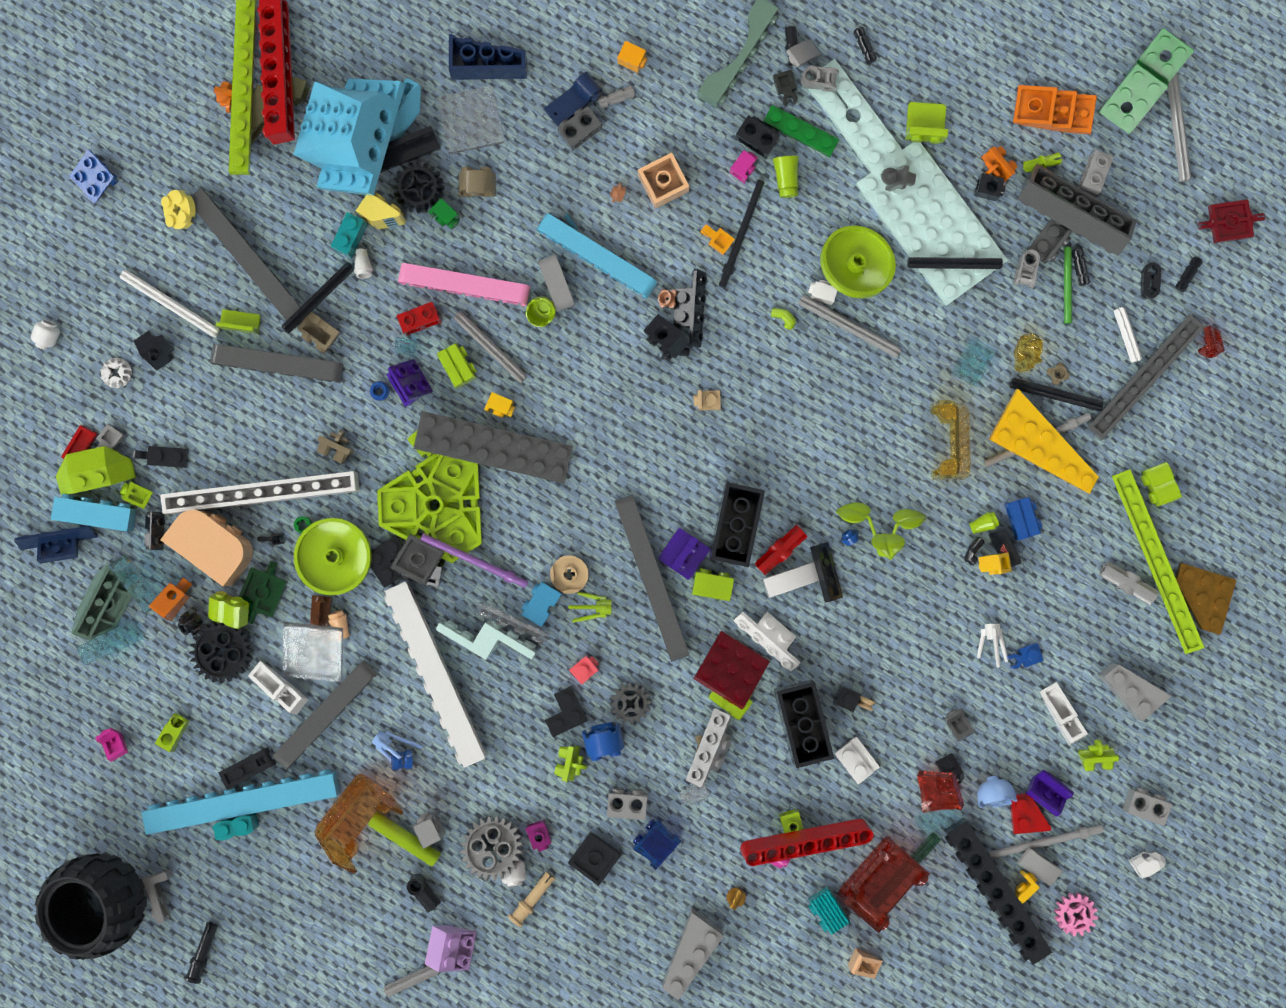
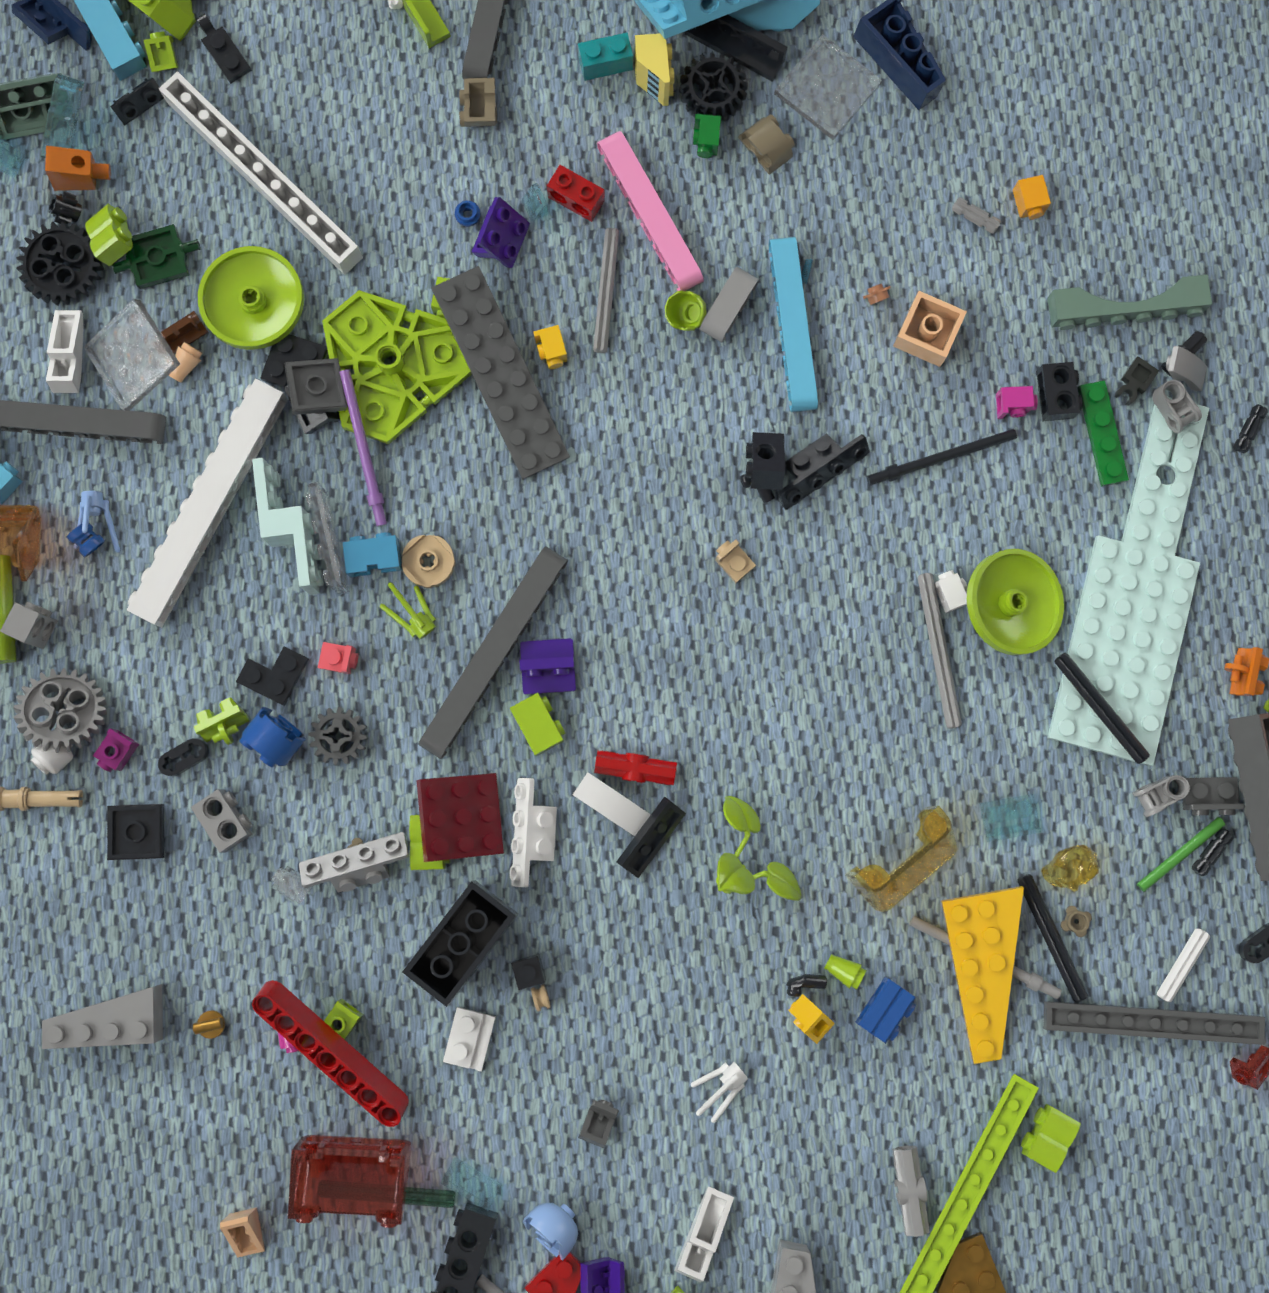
camera: 50 degrees right, 5 degrees down
(210, 545) = (163, 164): light nougat brick -> none
(274, 538) = (224, 226): black hand -> none
(276, 363) = (412, 87): dark grey beam -> none
(300, 519) = (254, 240): green bush -> none
(317, 298) = (513, 73): black axle -> none
(326, 444) = (366, 202): dark tan hips -> none
(363, 267) = (586, 94): white cone -> none
(456, 365) = (558, 269): lime brick -> none
(577, 800) = (186, 762): none -> black beam
(578, 96) = (937, 175): dark blue door -> none
(583, 132) = (911, 209): dark grey brick -> none
(656, 843) = (203, 886): clear blue hips -> none
(662, 298) = (808, 432): nougat plate -> none
(719, 240) = (915, 438): light orange plate -> none
(736, 524) = (623, 693): black brick -> none
(786, 316) = (893, 573): lime arm -> none
(787, 175) = (1044, 454): lime plant -> none
(829, 911) = (274, 1142): teal brick -> none
(850, 537) = (710, 833): blue plate -> none
(898, 178) = (1141, 571): dark grey hips -> none
(926, 123) = (1224, 558): lime bracket -> none
(939, 791) = (505, 1161): clear red plate -> none
(950, 765) = (539, 1155): black bracket -> none
(981, 187) = (1203, 681): black brick -> none
(1003, 544) = (839, 1011): black slope -> none
(1027, 655) = (738, 1140): blue plate -> none

